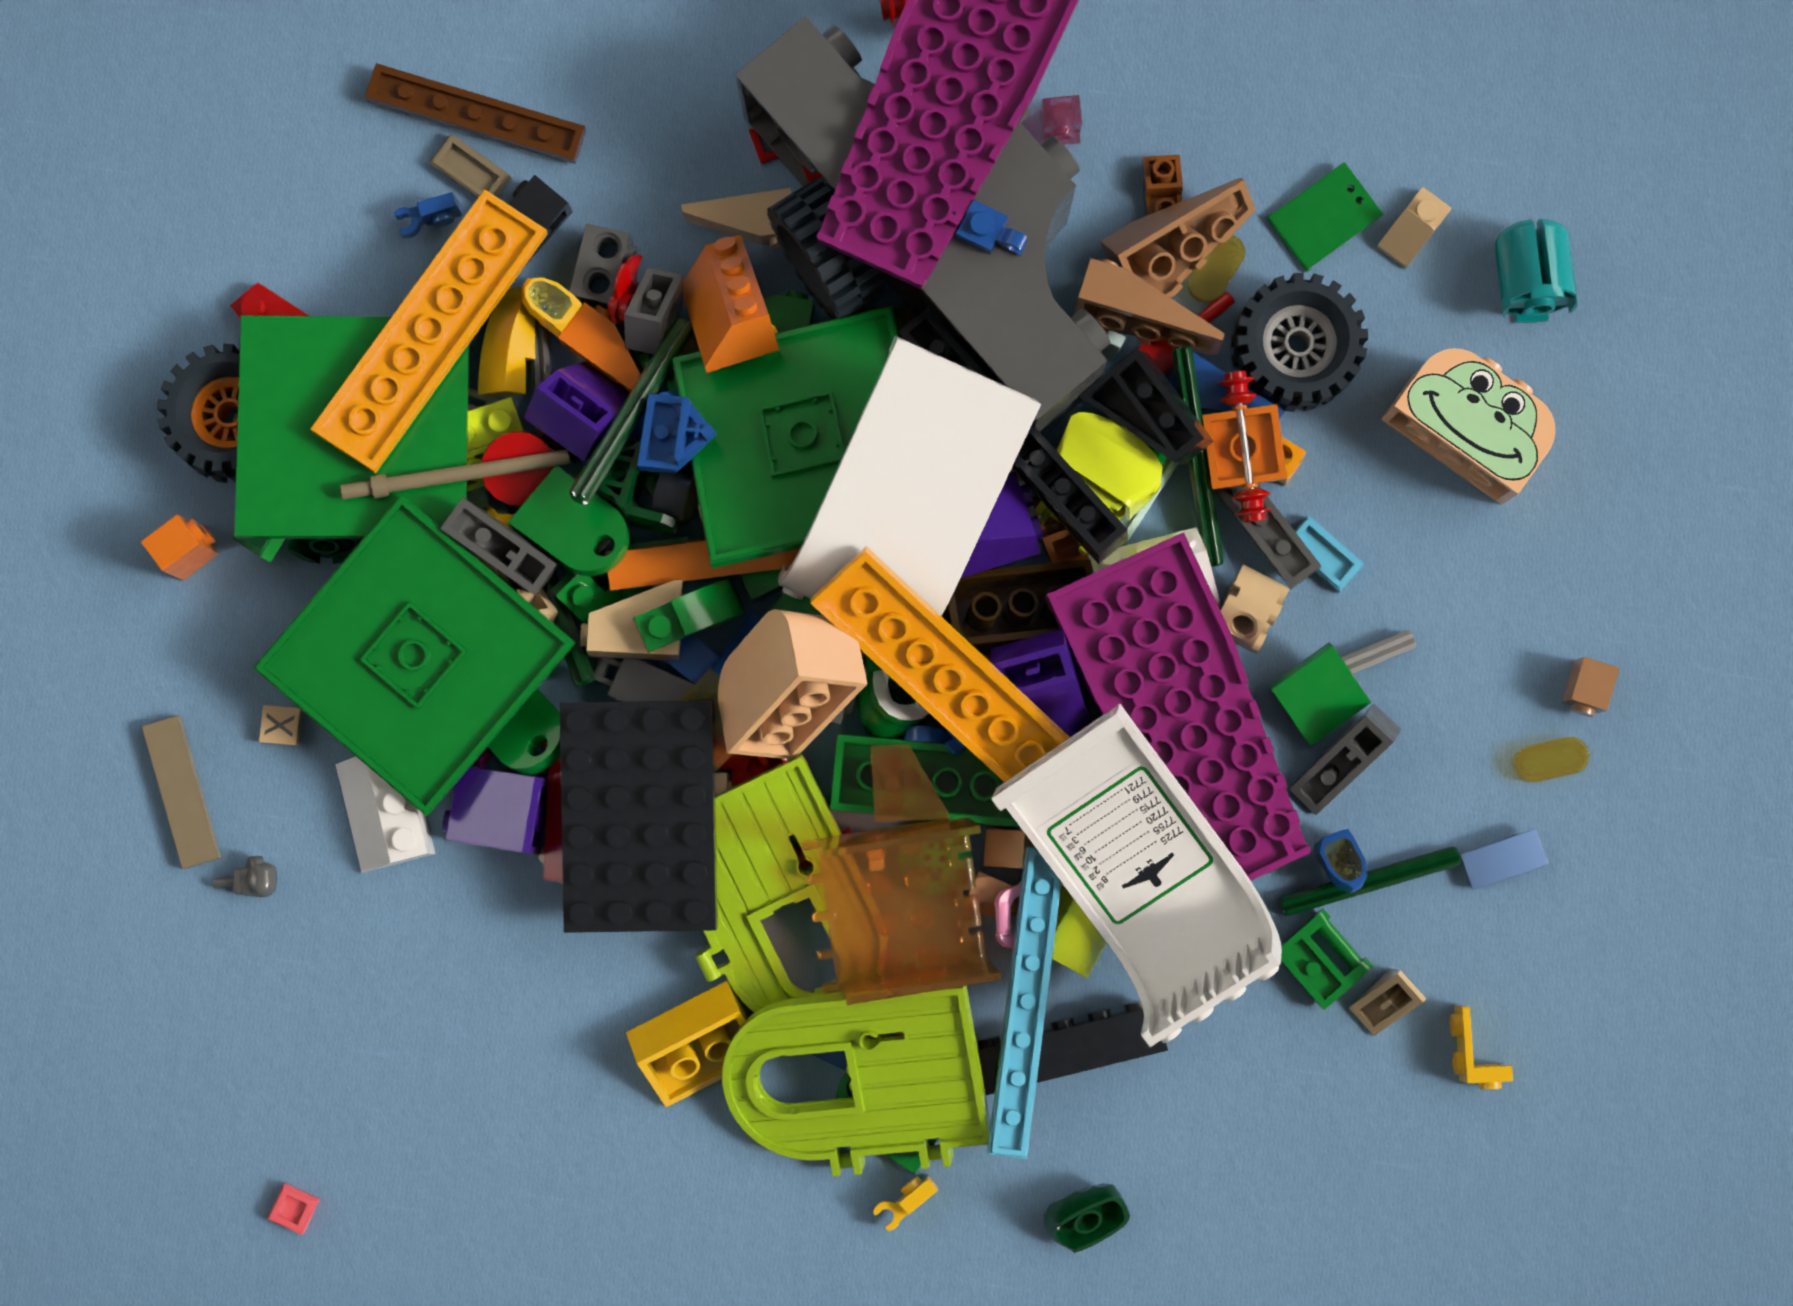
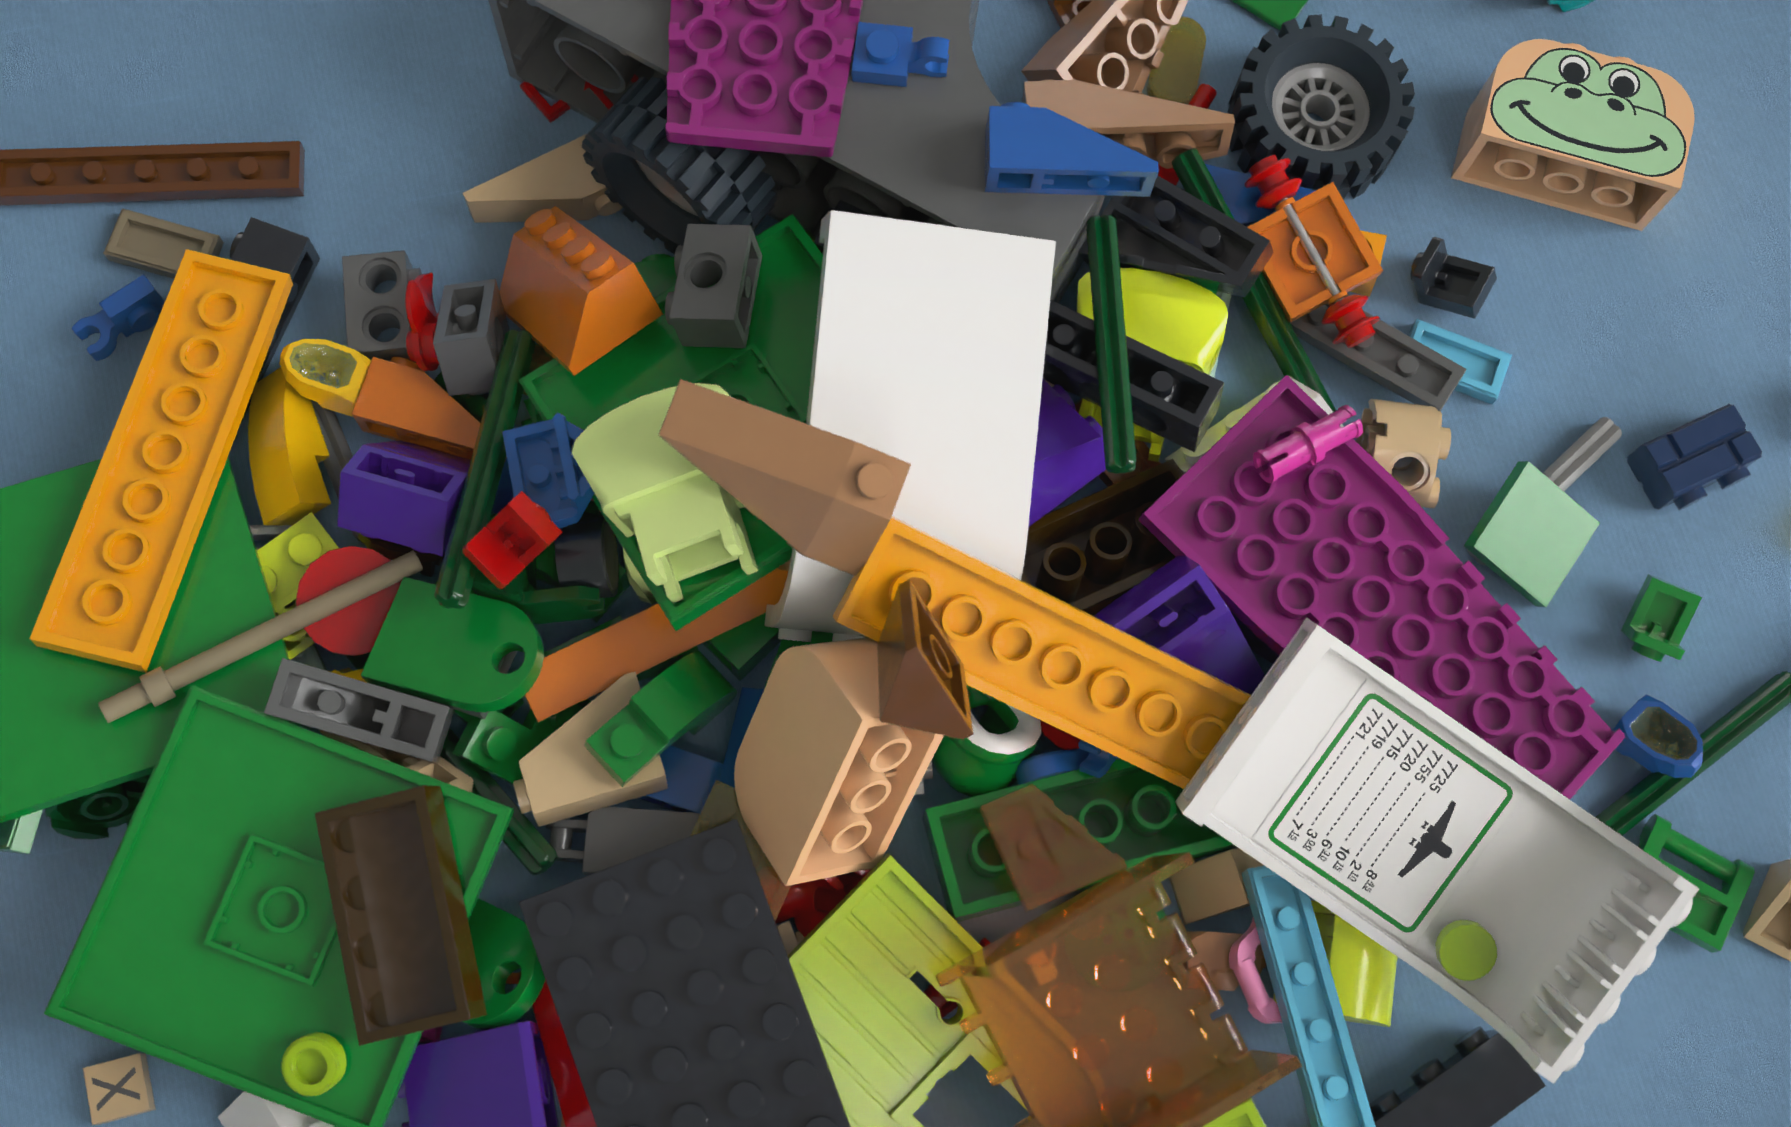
camera: 30 degrees left, 10 degrees down
(404, 757) = (313, 1064): none -> lime tile
(484, 685) = (400, 914): none -> dark brown slope
(628, 473) = (511, 540): none -> red bracket
(737, 469) = (655, 492): none -> yellowish green piece
(818, 510) = (802, 481): none -> medium nougat wedge
(819, 364) = (722, 312): none -> dark grey brick
(850, 656) = (920, 671): none -> reddish brown slope
(1062, 476) = (1111, 345): none -> dark green axle
(1064, 338) = (1051, 154): none -> blue slope
(1145, 948) = (1466, 950): none -> lime tile
(1175, 585) = (1307, 443): none -> dark pink pin
(1342, 496) = (1451, 281): none -> black bracket
(1345, 759) = (1602, 604): dark grey slope -> none
(1383, 782) = (1660, 618): none -> green bracket
(1458, 680) = (1694, 457): none -> dark blue brick

